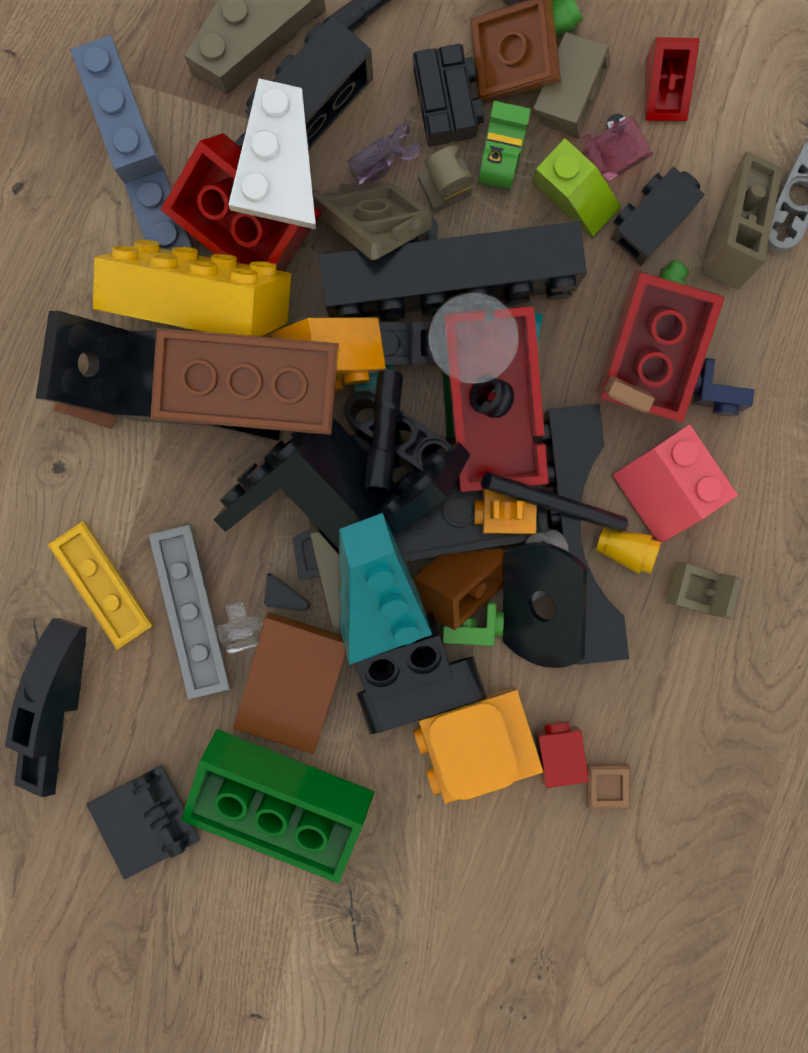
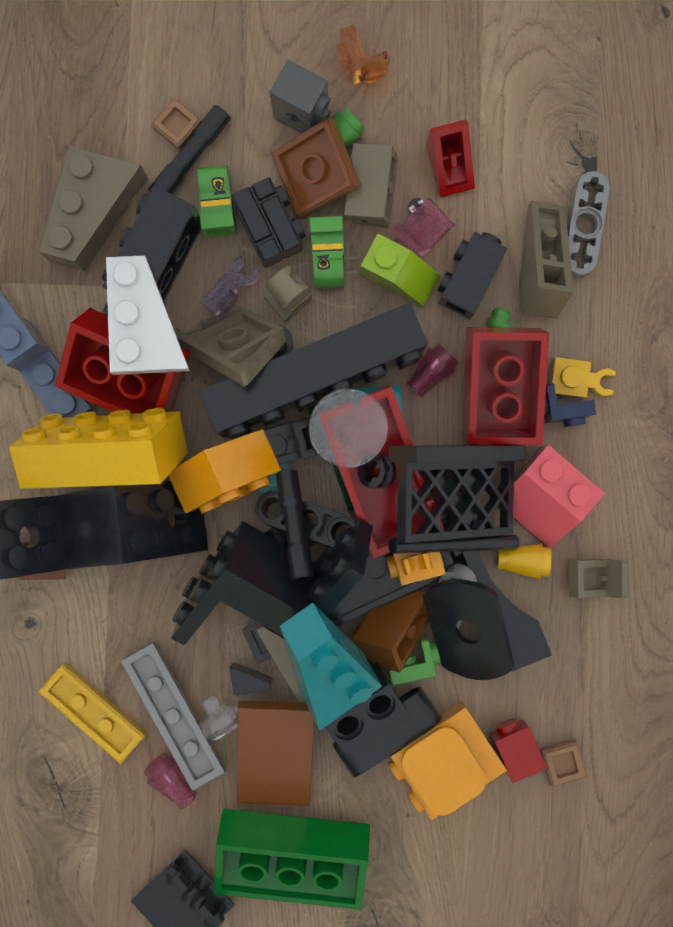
camera: 20 degrees left, 0 degrees up
(44, 693) = (69, 823): black slope -> none
(165, 681) = (168, 779): none -> clear pink cone
(244, 381) = (164, 519): dark orange tile -> none
(394, 57) = (215, 202): none -> bright green leg
(577, 405) = (449, 459): none -> black fence
(584, 308) = (433, 368): none -> clear pink cone
(629, 394) = (491, 436): medium nougat tile -> none
(739, 363) = (574, 378): none -> yellow plate

